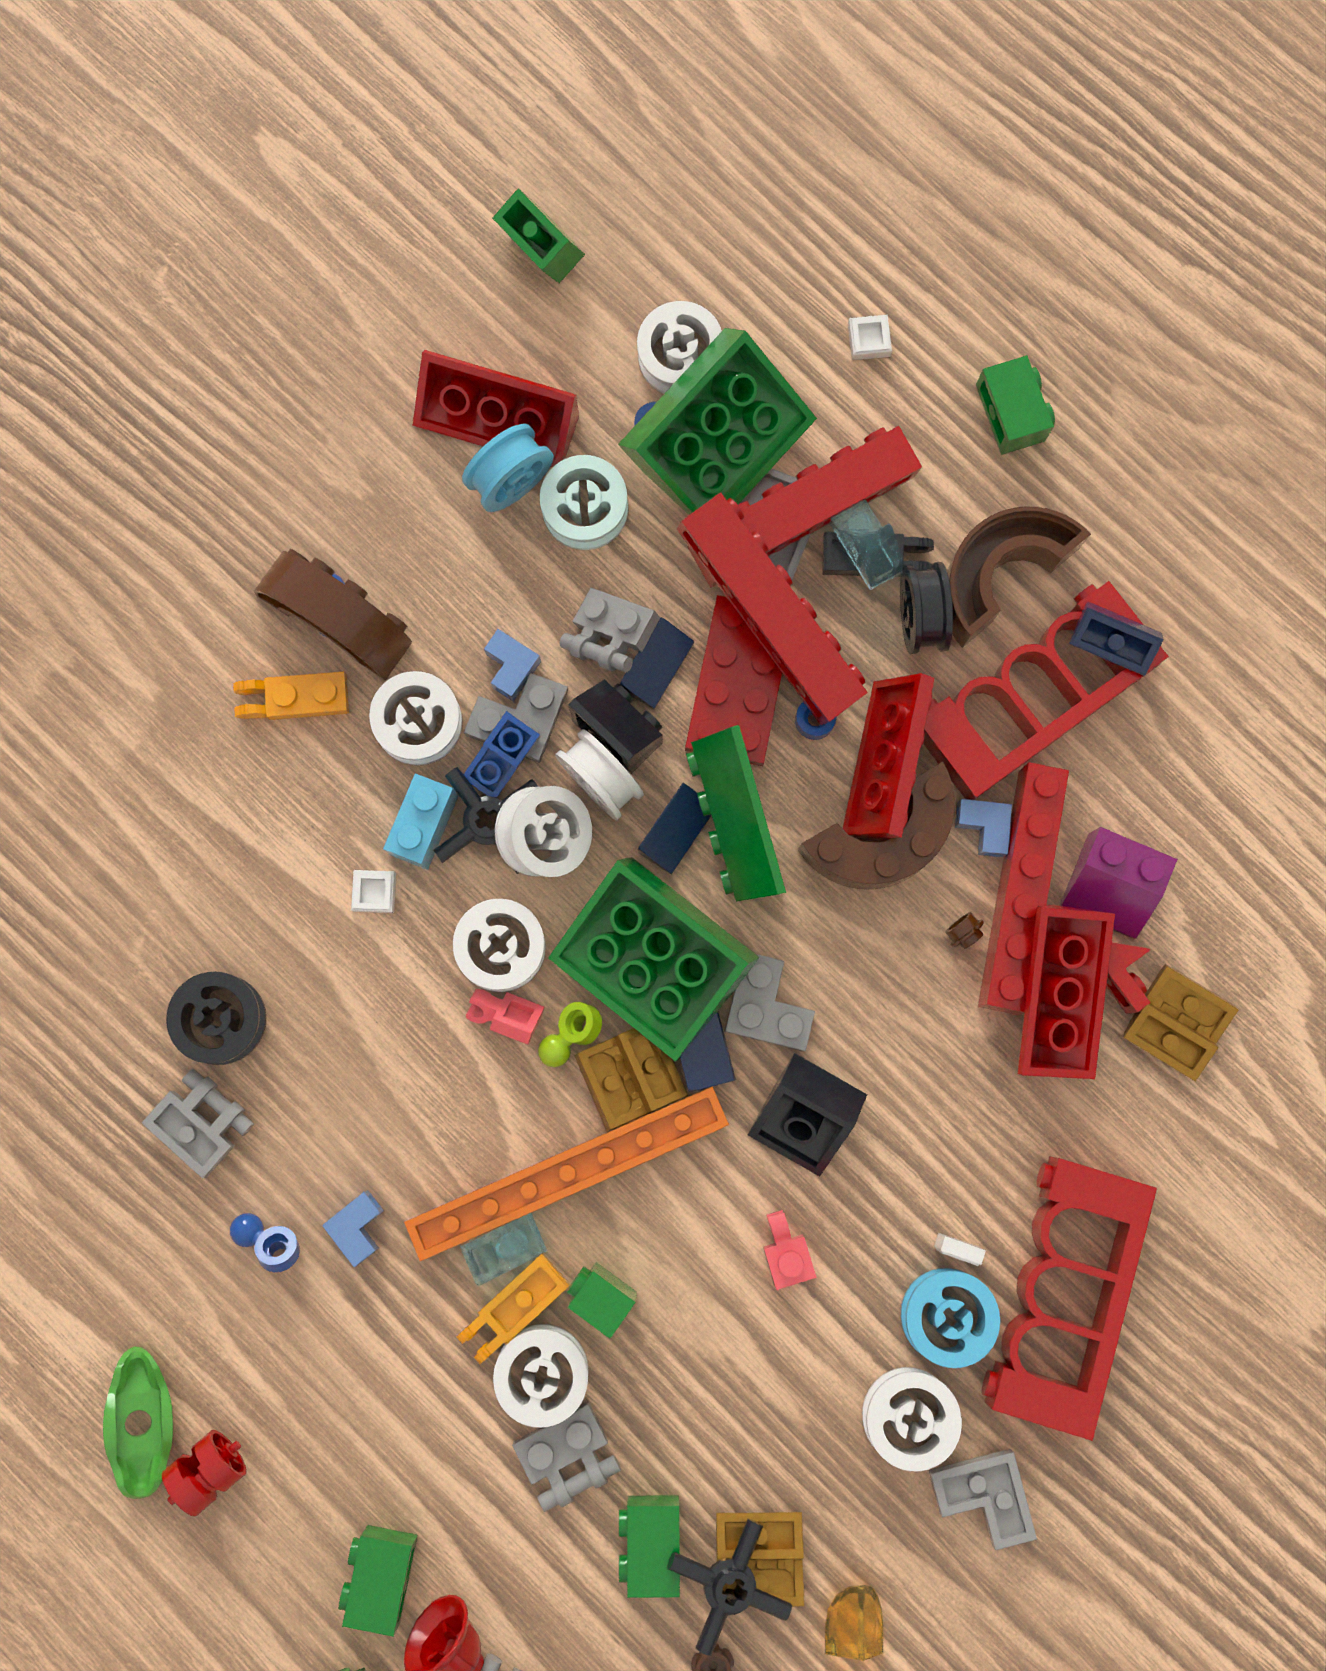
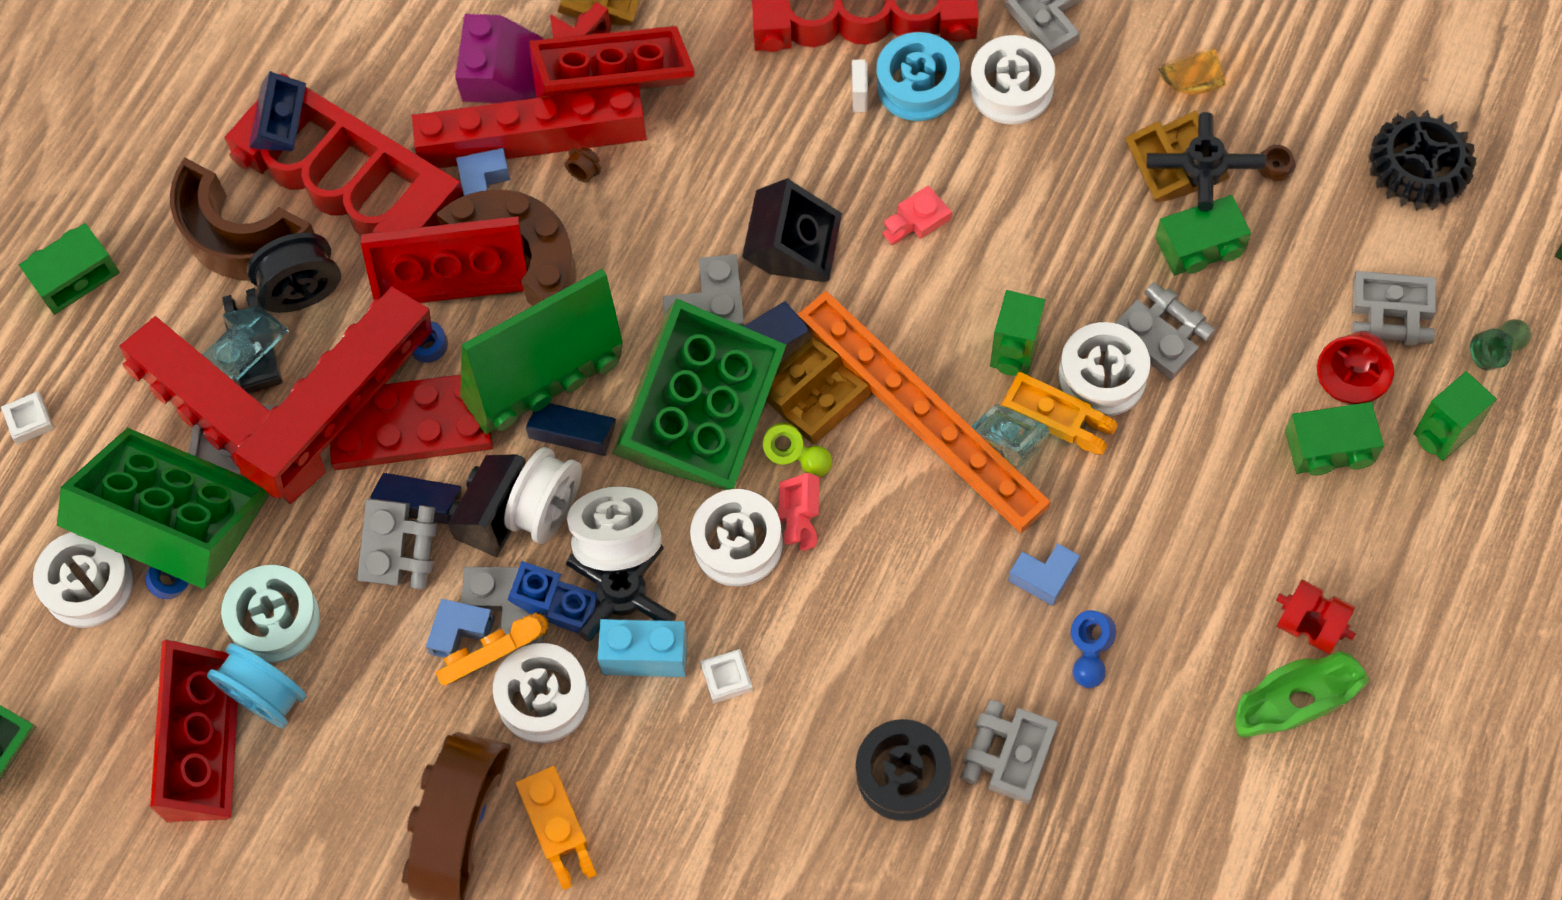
camera: 105 degrees left, 15 degrees down
(466, 685) = (494, 647): none -> light orange hinge

